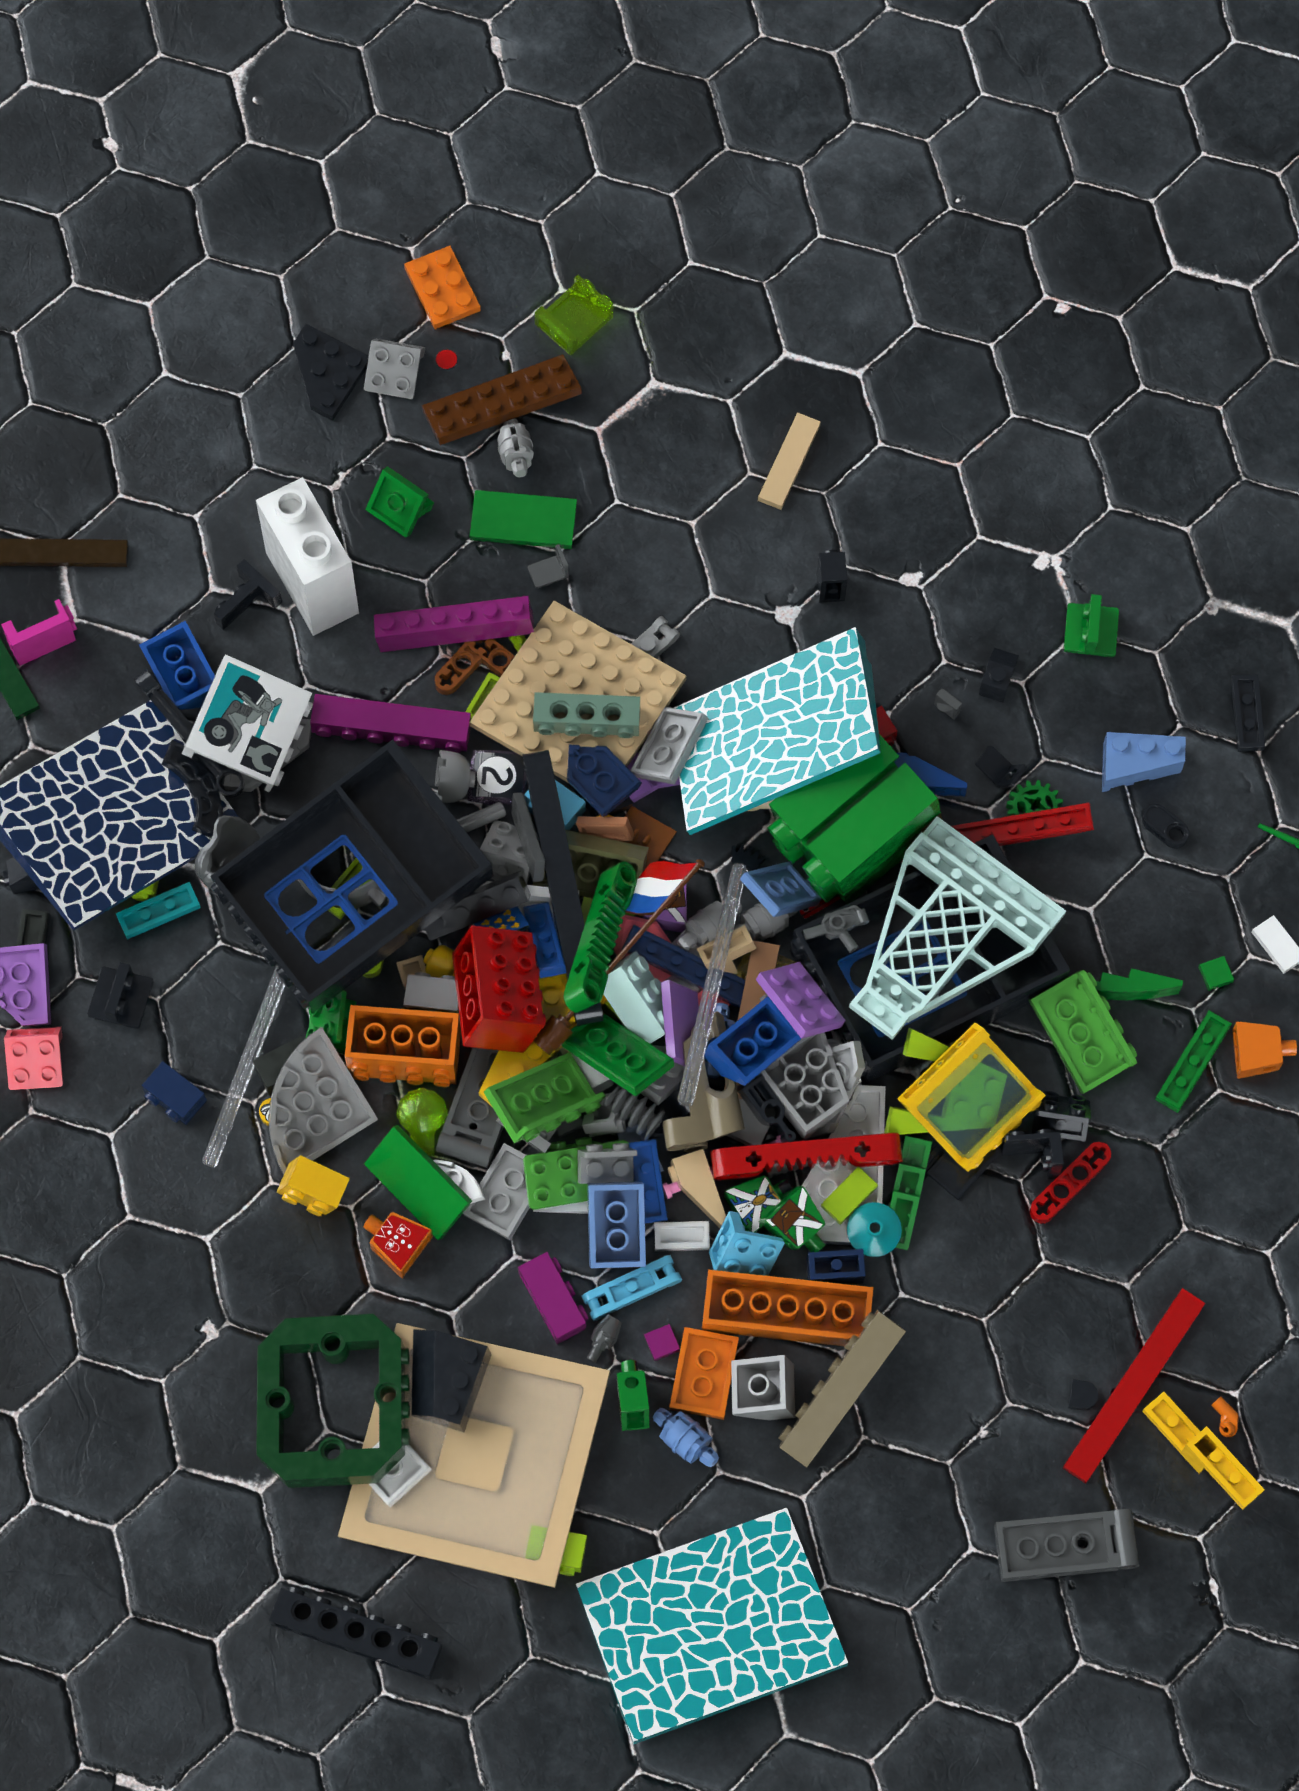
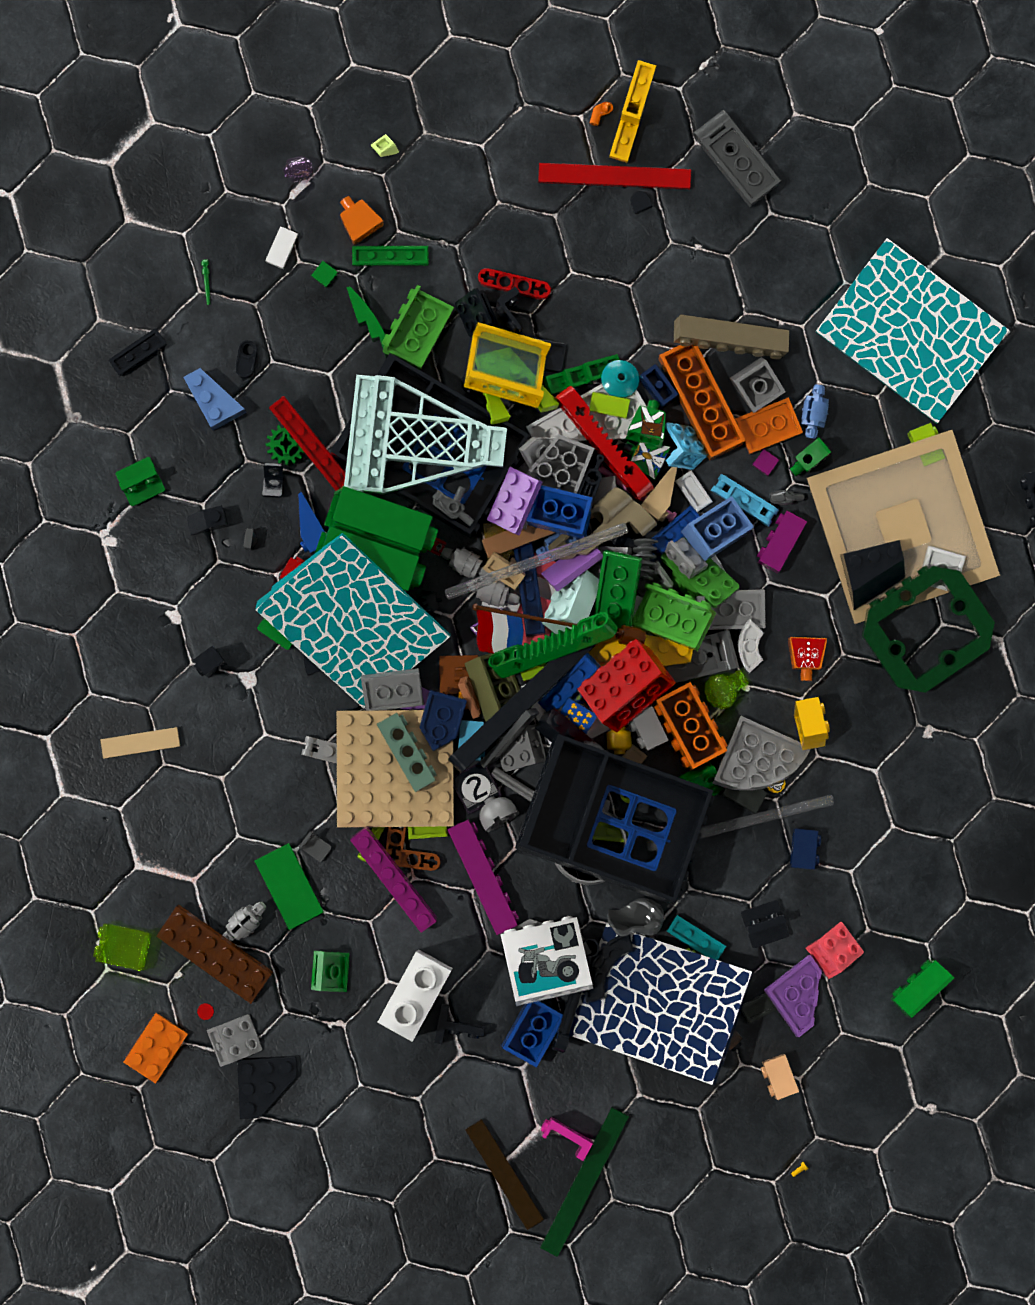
camera: 125 degrees left, 15 degrees up
(418, 1182) = (765, 665): green tile -> none
(780, 889) = (445, 563): medium blue tile -> none

